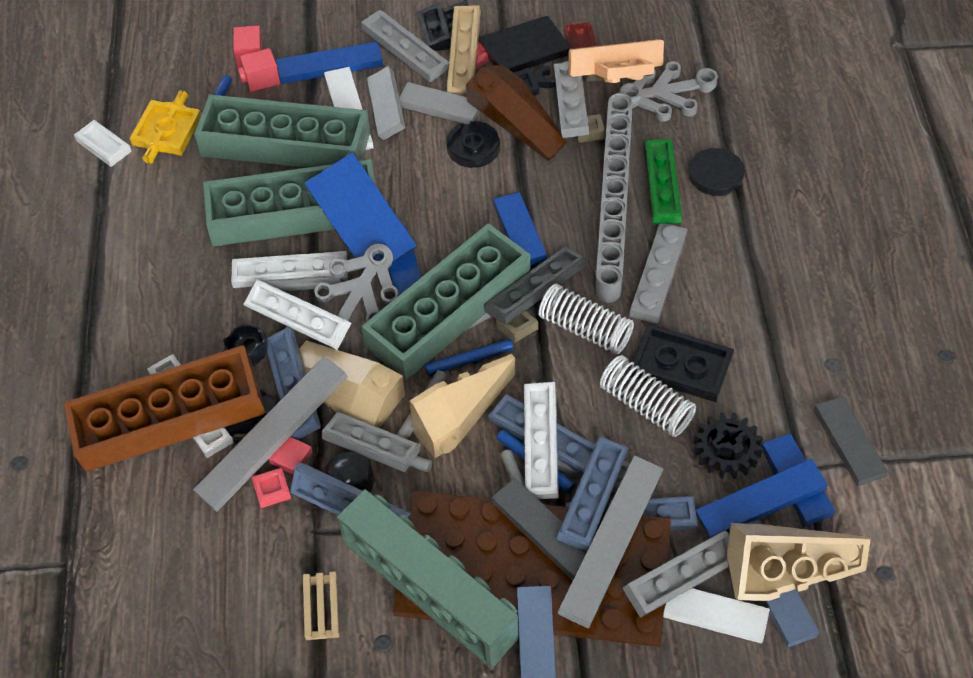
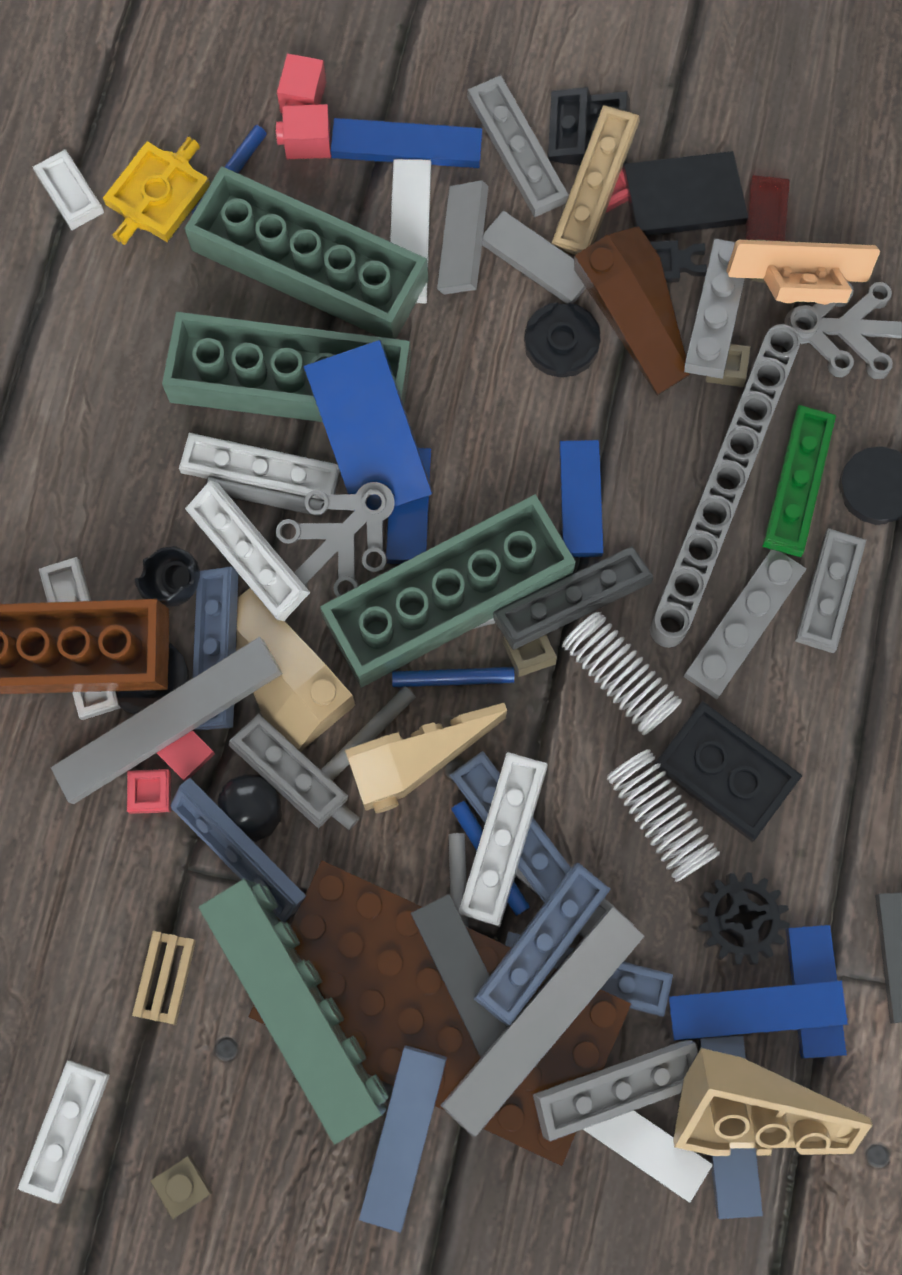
camera: 15 degrees right, 20 degrees up
(709, 239) = (830, 590): none -> light grey tile

